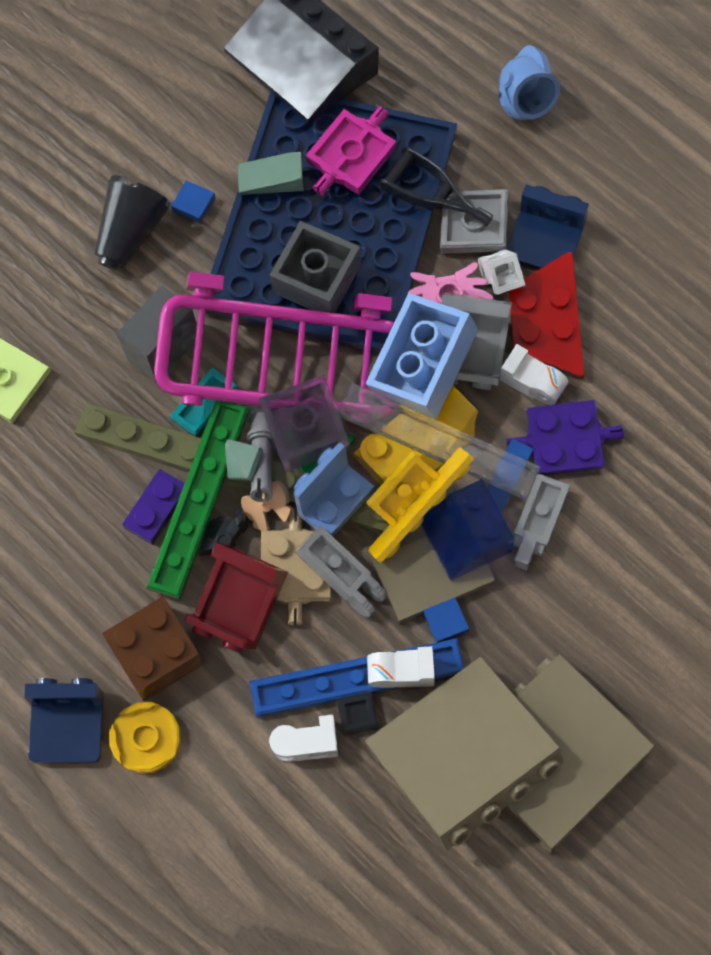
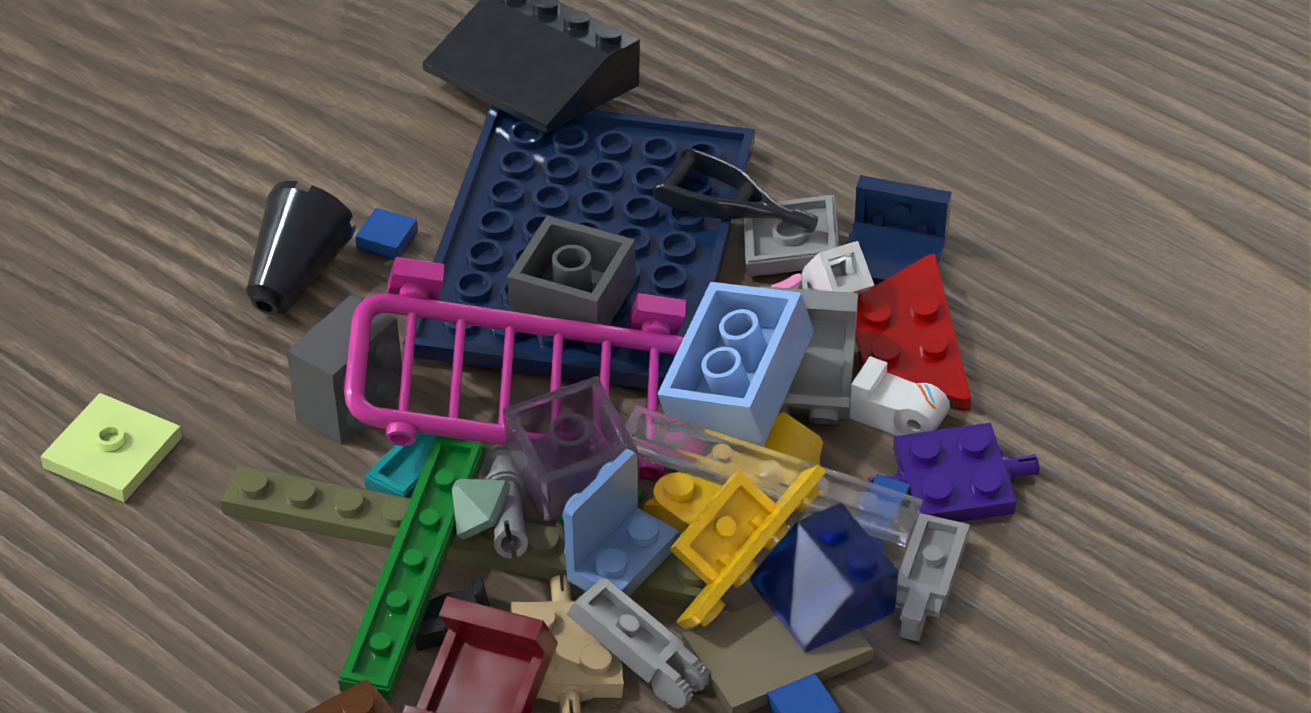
camera: 10 degrees left, 25 degrees down
(154, 507) = (343, 591): dark purple plate -> none
(271, 174) = (501, 188): sand green slope -> none
(279, 503) = (502, 575): light nougat piece -> none
(351, 151) = (610, 157): dark pink plate -> none
(528, 85) = (849, 82): medium blue helmet -> none

